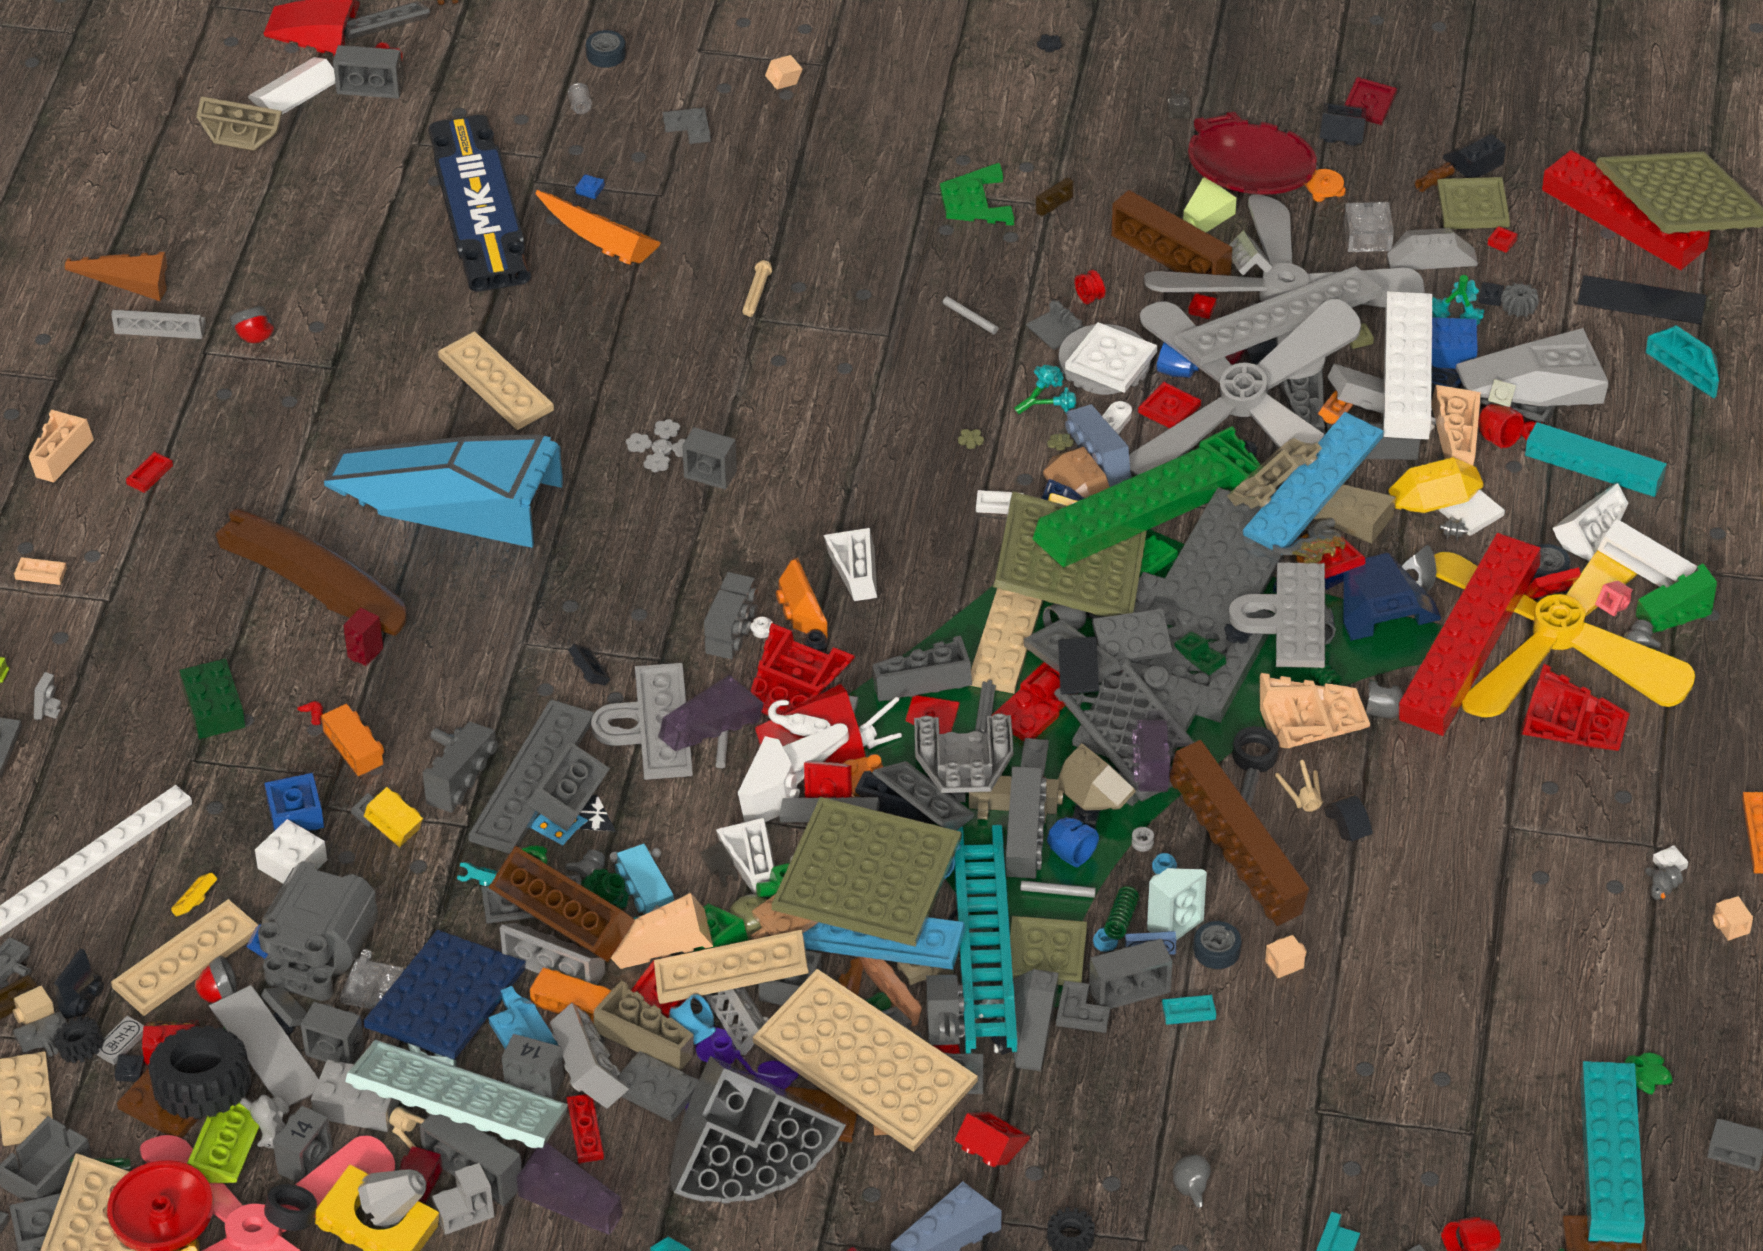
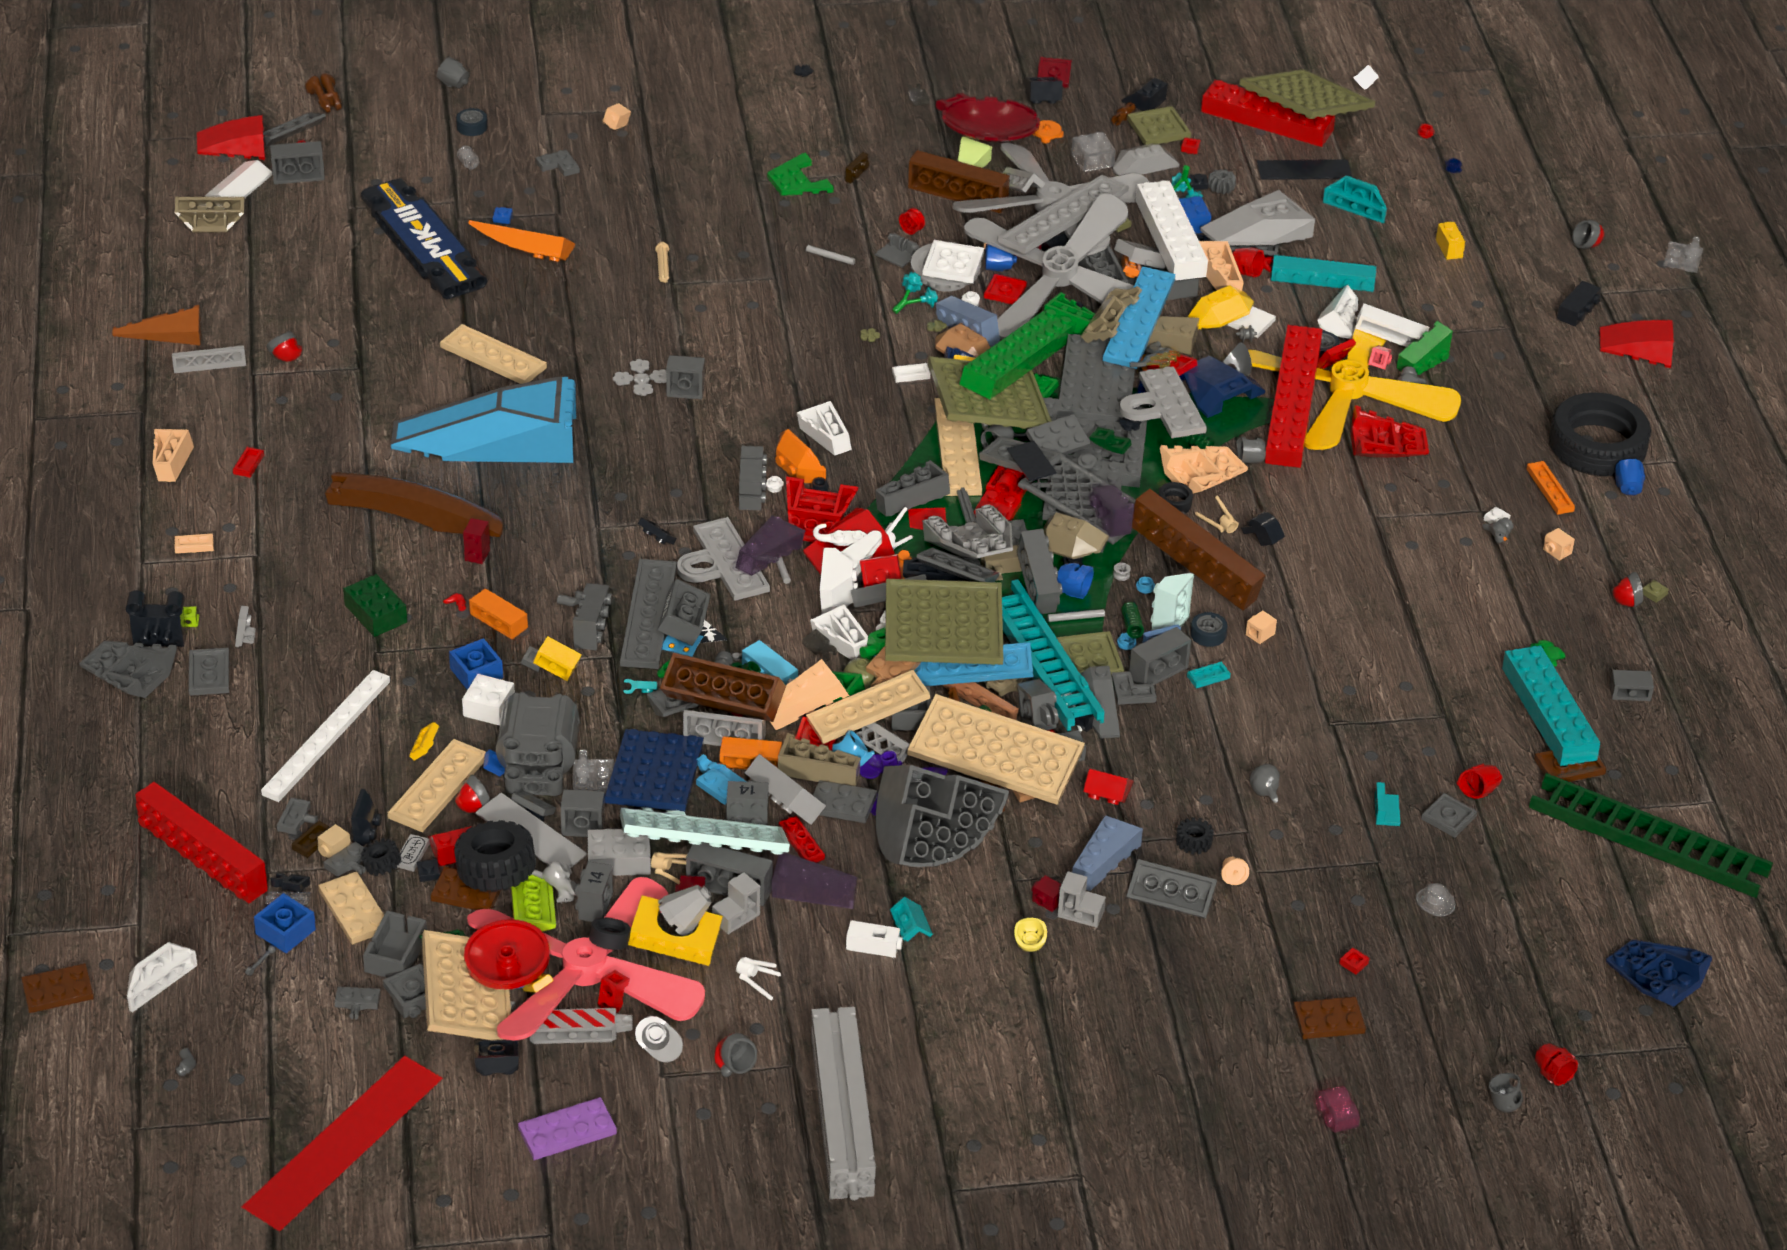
camera: 20 degrees left, 5 degrees down
(1202, 306) = (998, 219): red plate -> none
(1501, 393) = (1243, 239): plate -> none

